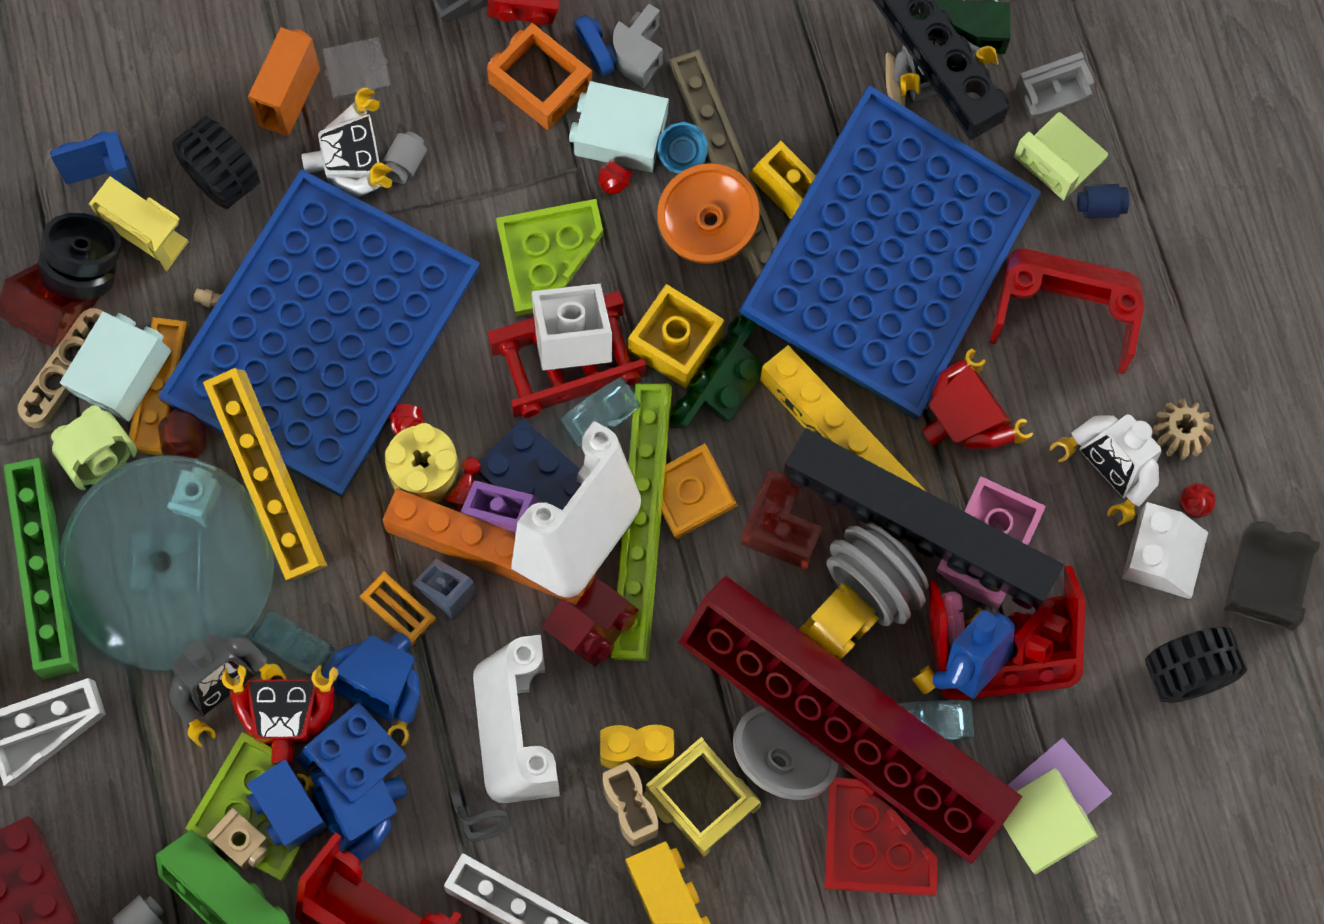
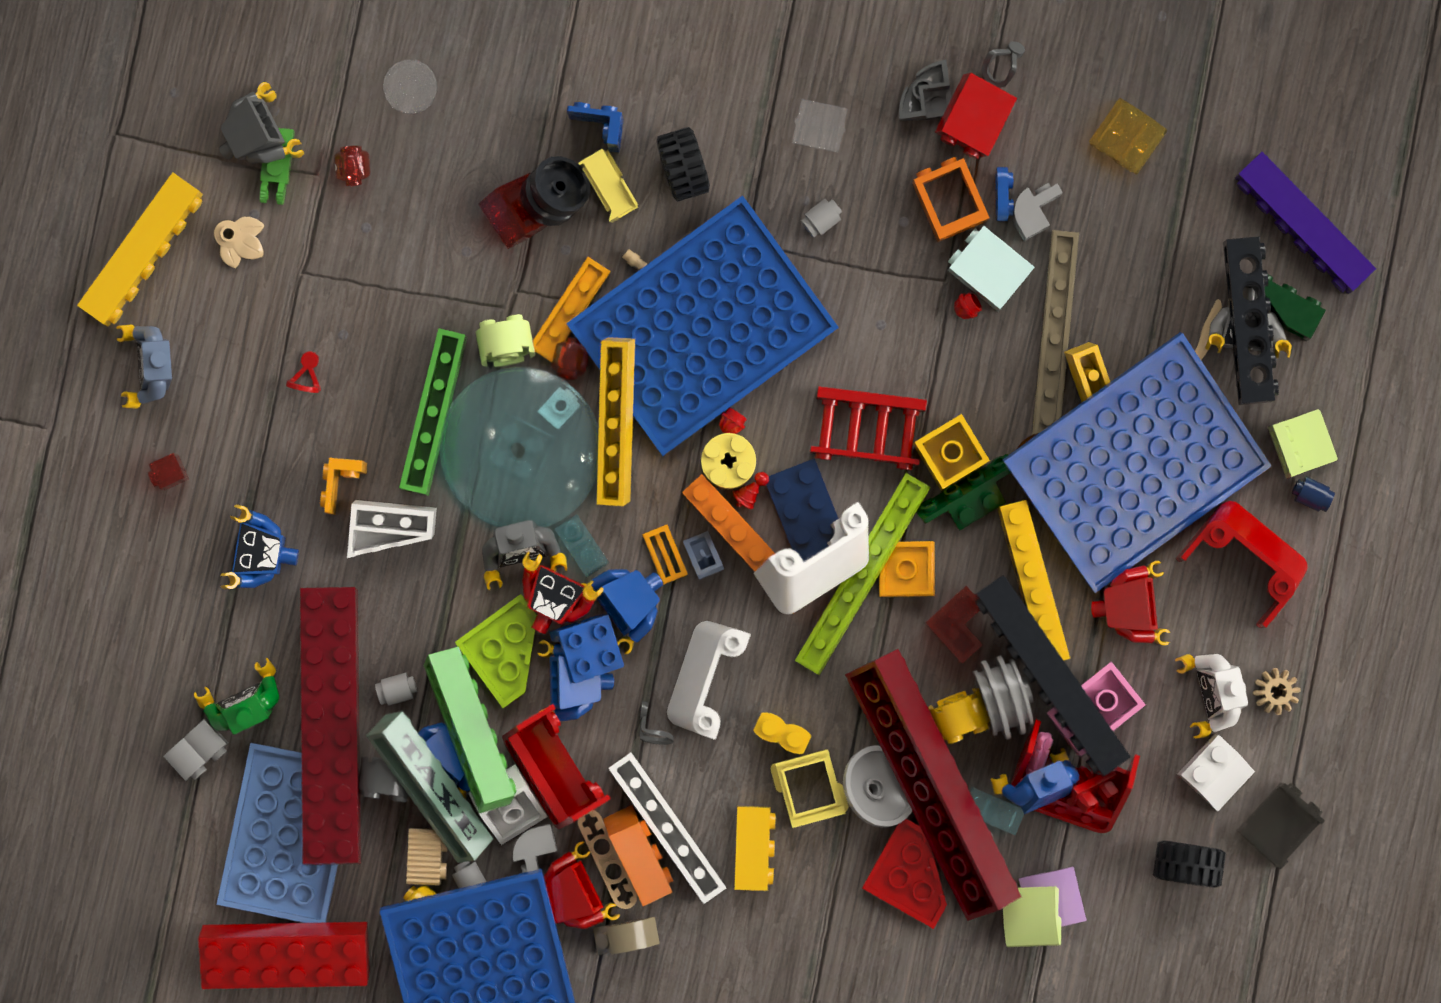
camera: 25 degrees right, 15 degrees up
(55, 365) = (512, 268): tan beam -> none
(116, 365) = (547, 284): light aqua brick -> none
(229, 827) = (487, 659): tan brick -> none
(284, 81) = (761, 119): orange brick -> none
(286, 805) = (528, 662): blue brick -> none
(350, 150) = (784, 196): torso -> none
(497, 505) = (769, 525): medium lavender brick -> none
(547, 248) = (891, 339): lime plate -> none
(572, 326) = (879, 413): white slope -> none
(592, 623) = (789, 636): dark red brick -> none
(606, 406) = (871, 481): clear light blue slope -> none
(635, 813) = (758, 780): tan brick -> none
(682, 147) = (1027, 308): dark azure hair -> none
(706, 193) = (1000, 365): orange dish -> none
(1055, 85) = (1327, 388): light grey hinge -> none
(1197, 500) = (1259, 746): red plate -> none

